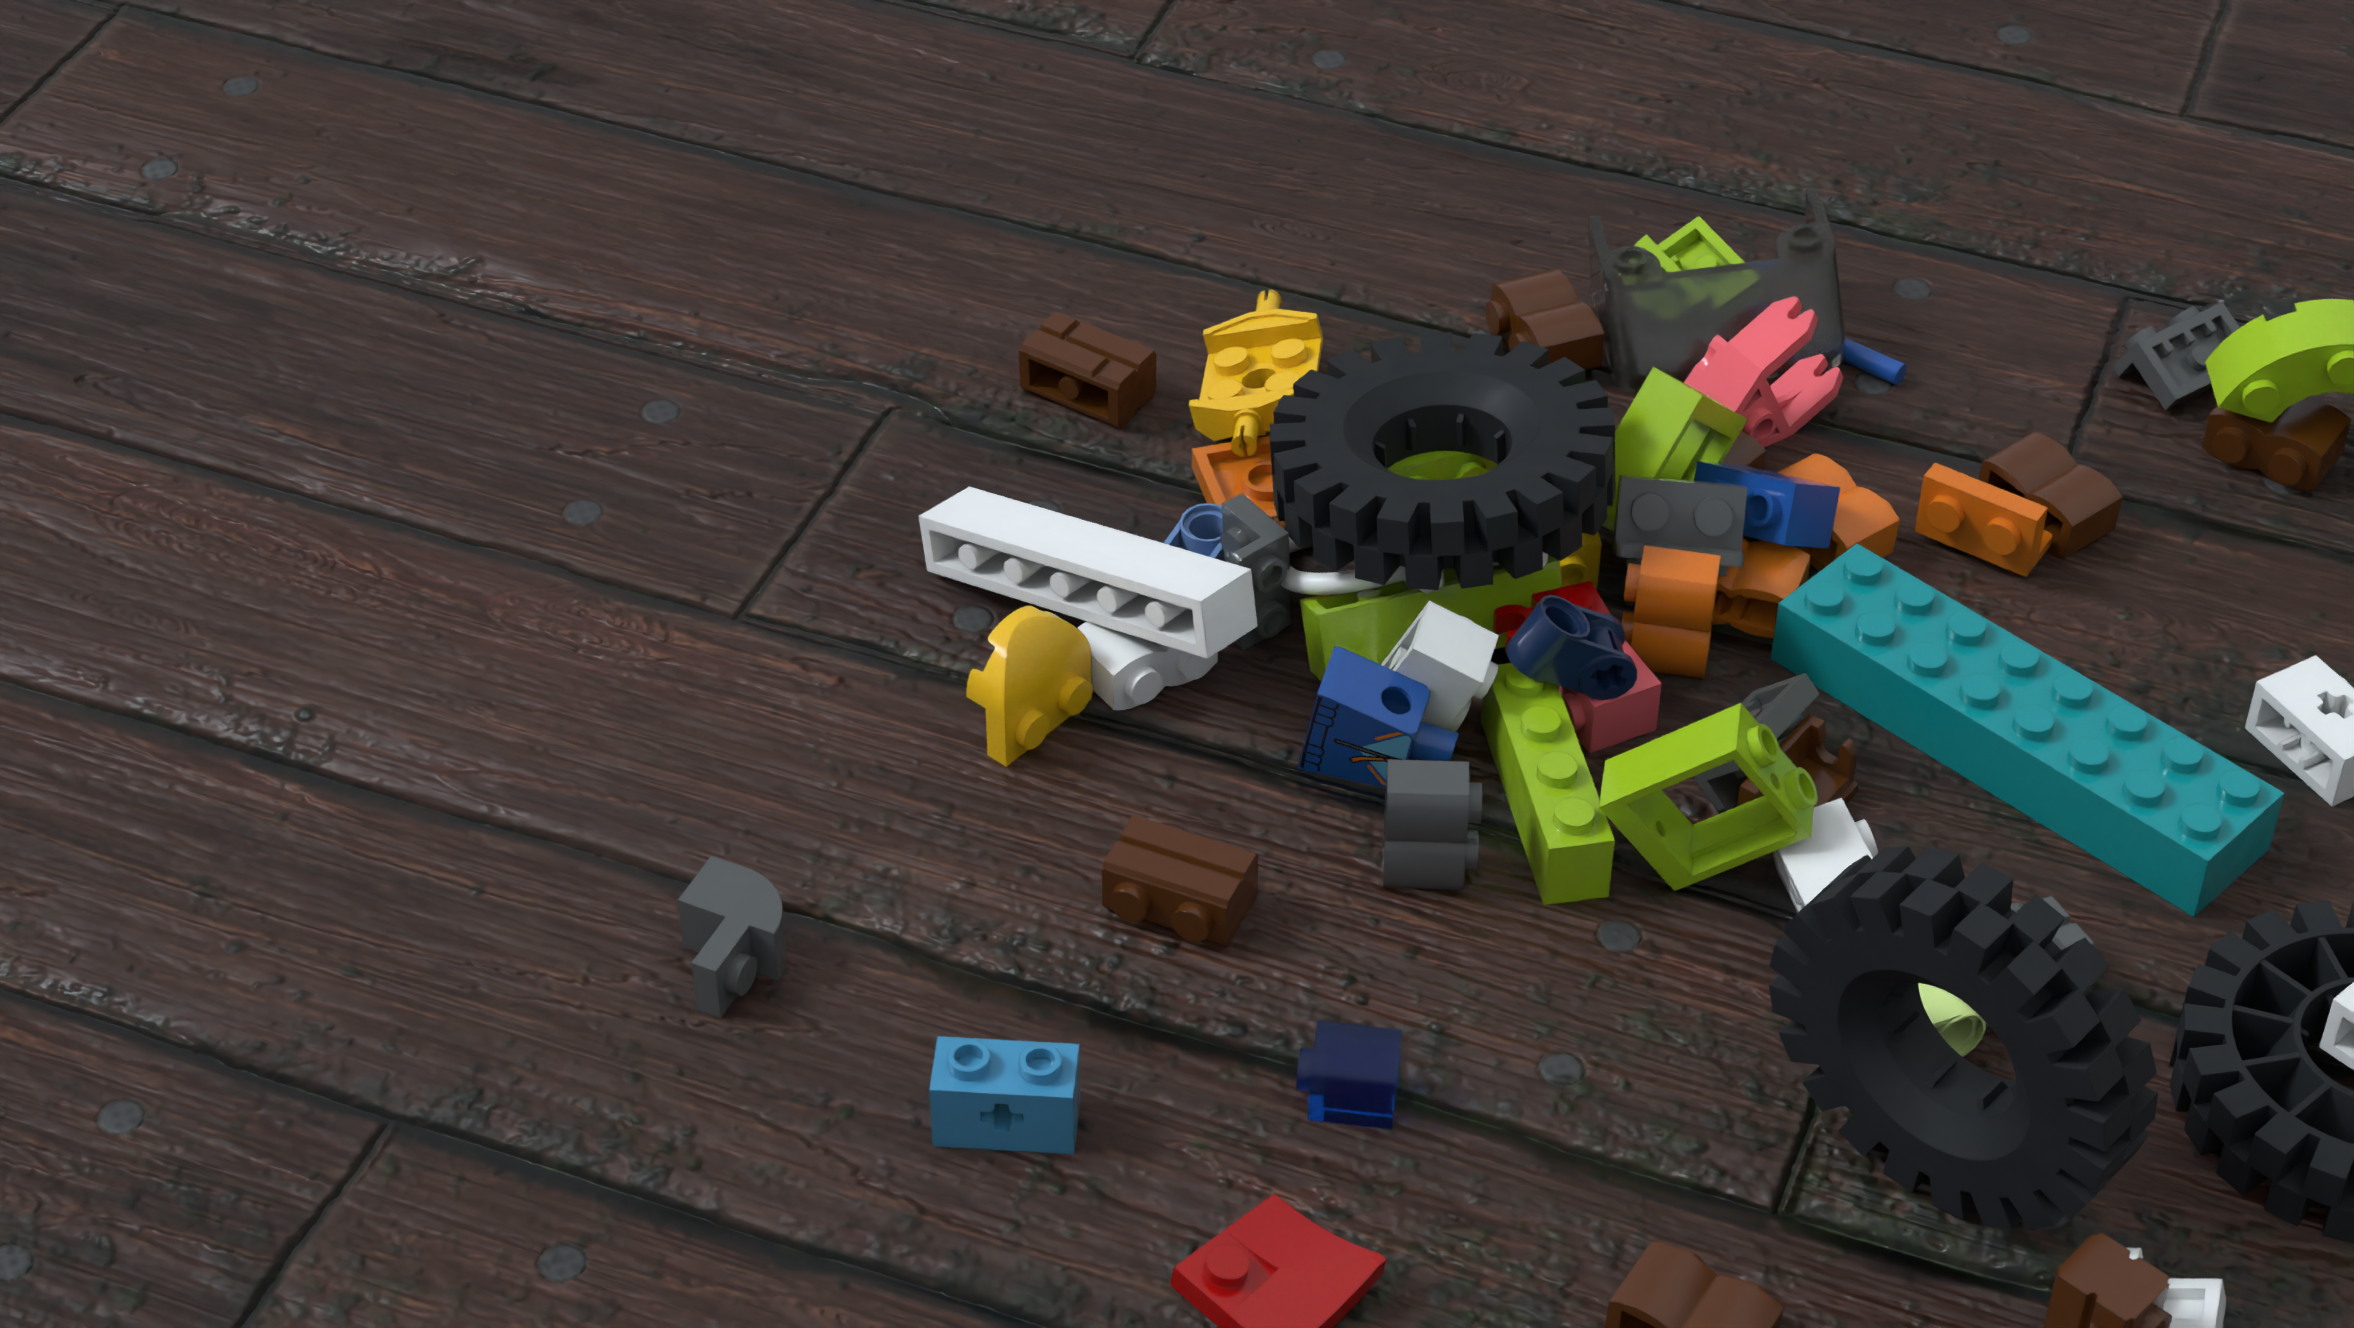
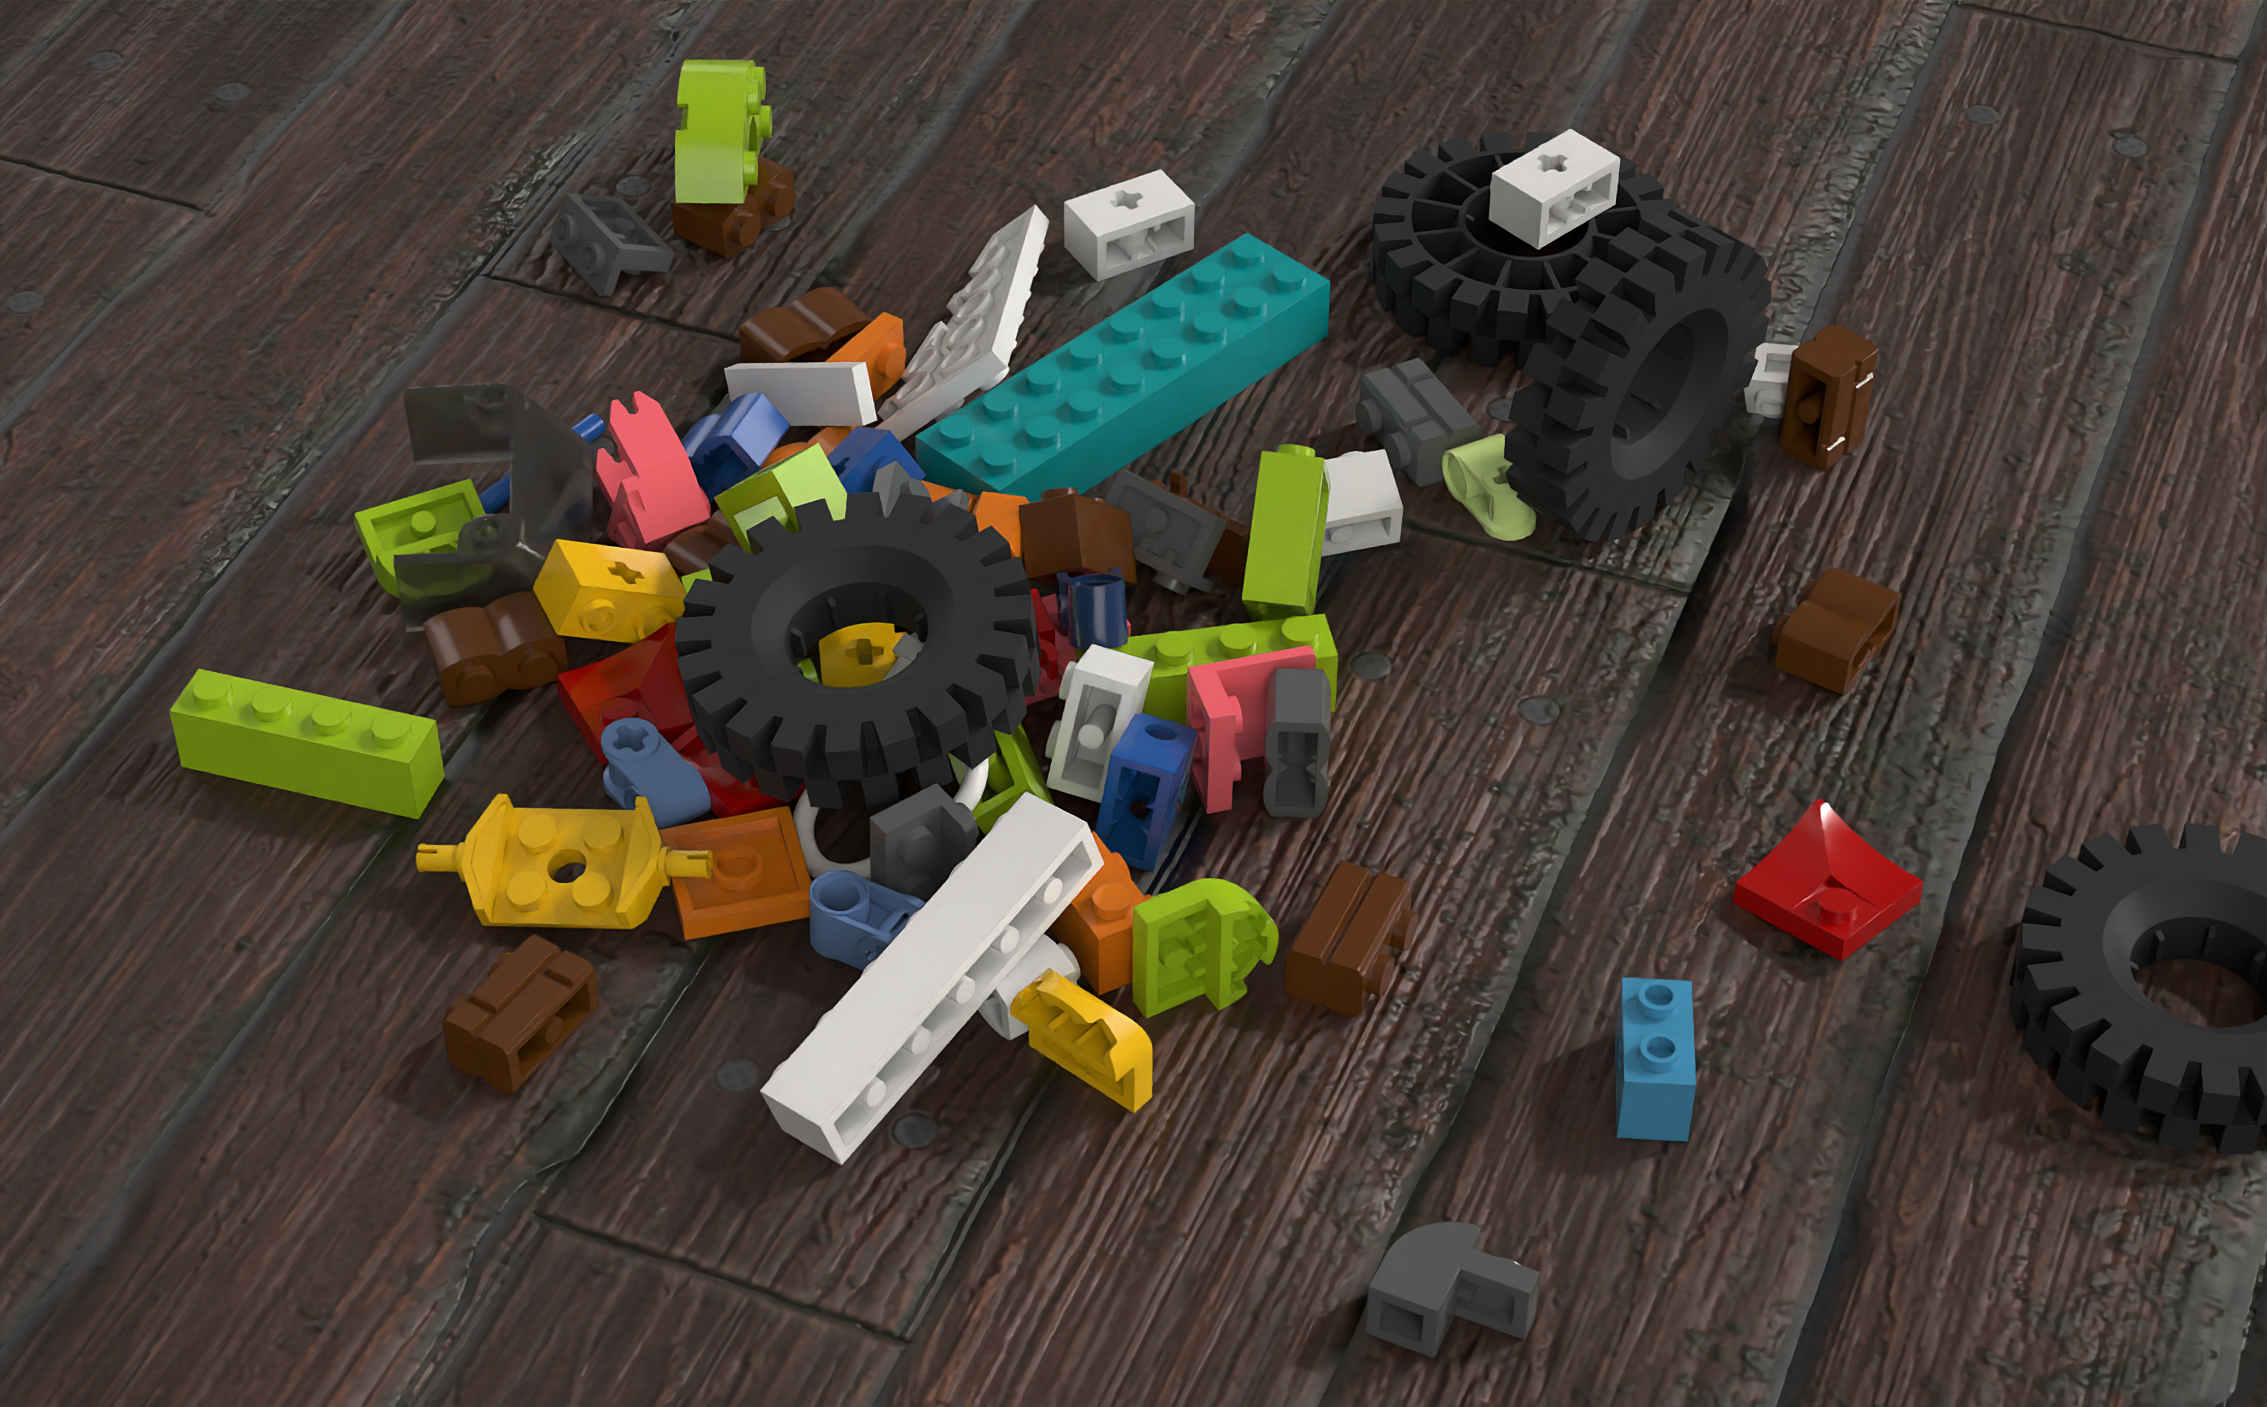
camera: 90 degrees left, 0 degrees up
(1137, 744) = (1198, 944): none -> lime slope
(1206, 703) = (1100, 924): none -> orange brick
(1351, 1074) = (1592, 821): clear blue brick -> none
(1403, 228) = (308, 743): none -> lime brick
(1452, 734) = (1230, 715): none -> coral bracket
(1605, 346) = (608, 591): none -> yellow brick
(1695, 653) = (1075, 537): none -> reddish brown brick
(1828, 427) = (734, 443): none -> blue brick
(1906, 468) = (809, 391): none -> white tile
(2085, 603) = (980, 335): none -> white wing

